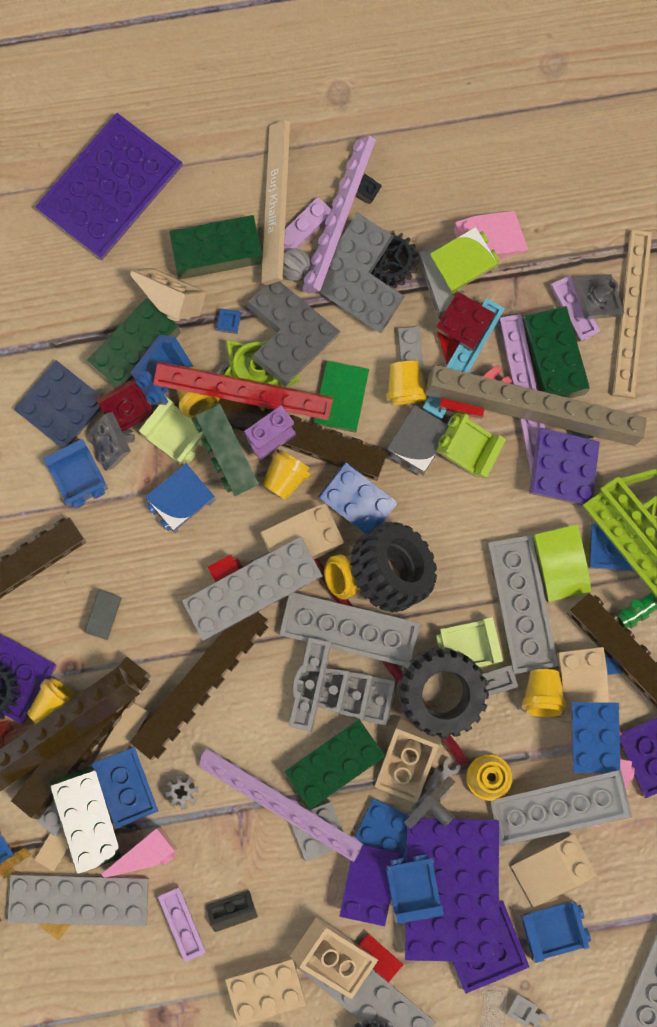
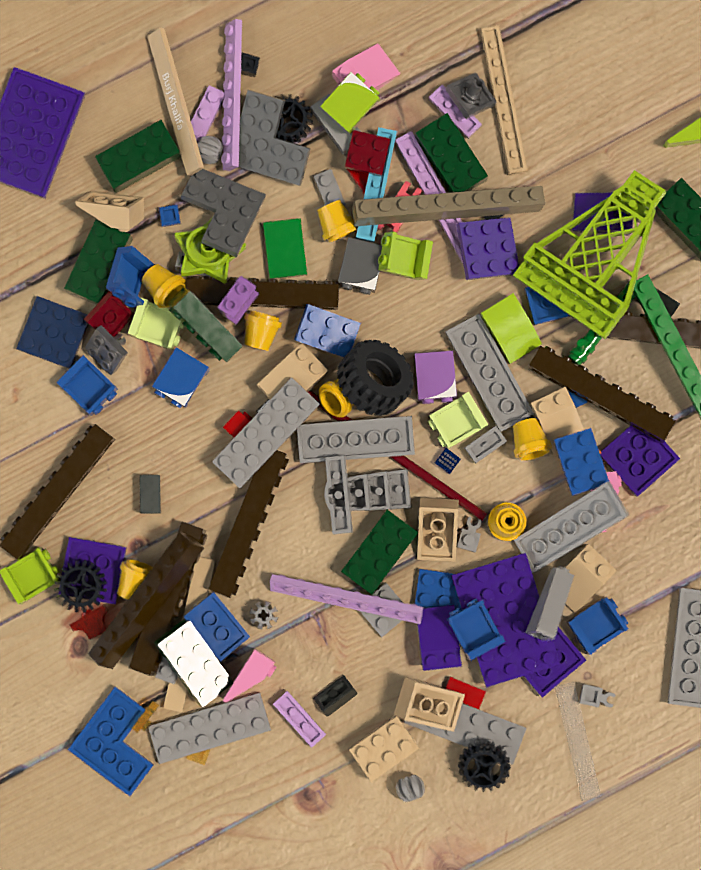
camera: 20 degrees left, 5 degrees up
(242, 390) = (203, 272): red plate -> none
(431, 804) = (466, 557): flat silver plate -> none
(444, 687) = (447, 461): none -> clear blue tile
(459, 407) = (383, 228): red tile -> none
(461, 589) = (435, 376): none -> medium lavender panel
(467, 709) = (471, 474): black tyre -> none
(509, 890) = (550, 604): none -> light grey slope

